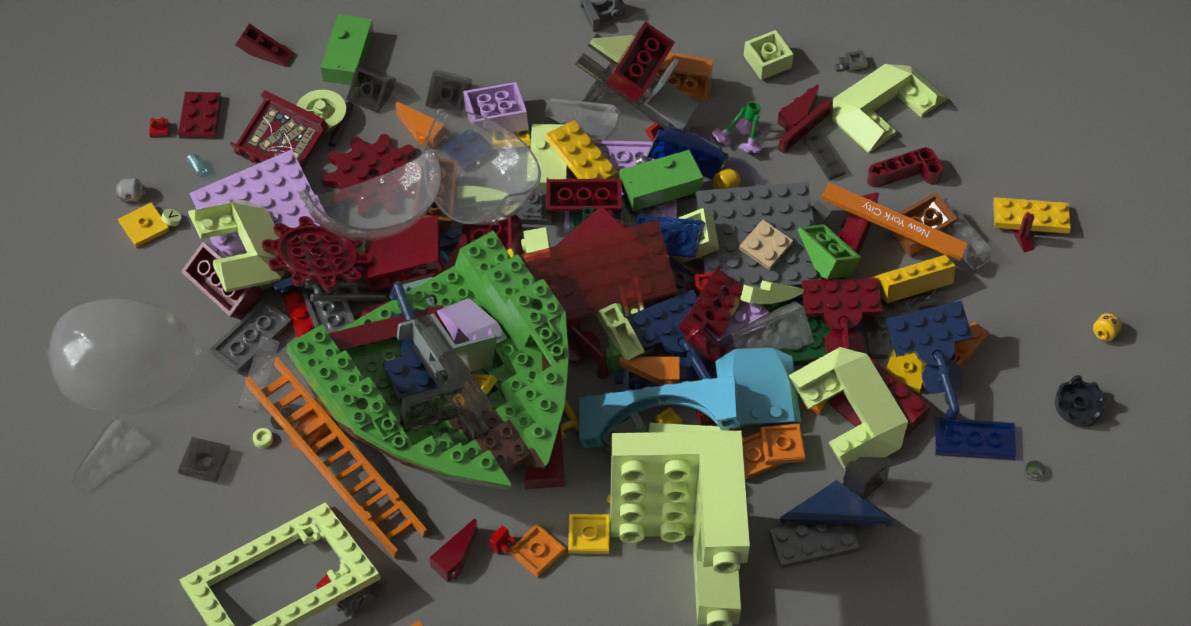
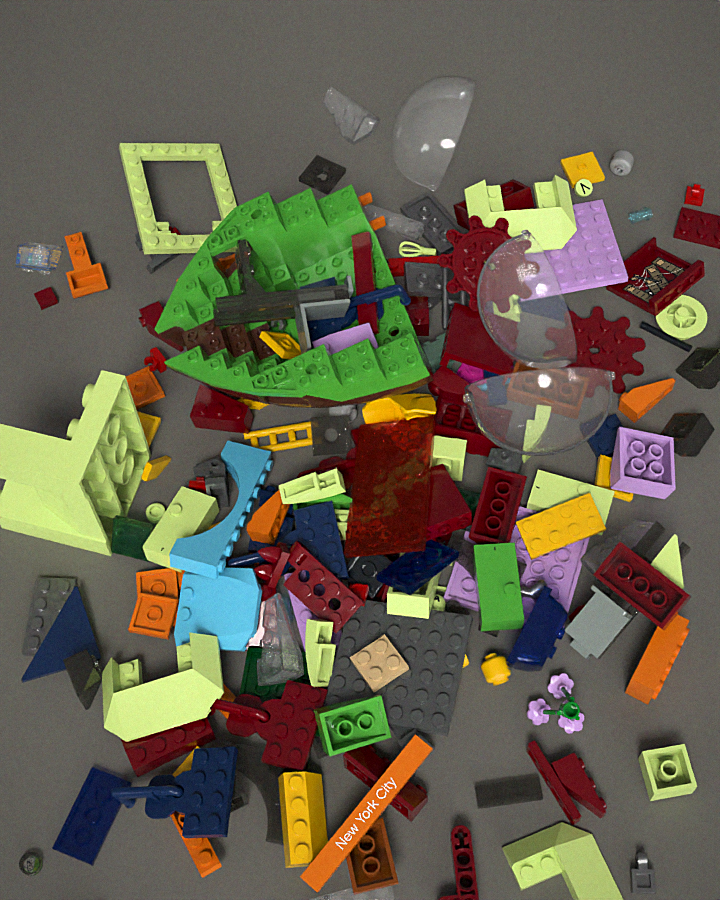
camera: 110 degrees right, 5 degrees up
(289, 337) = (420, 250): none -> yellowish green piece

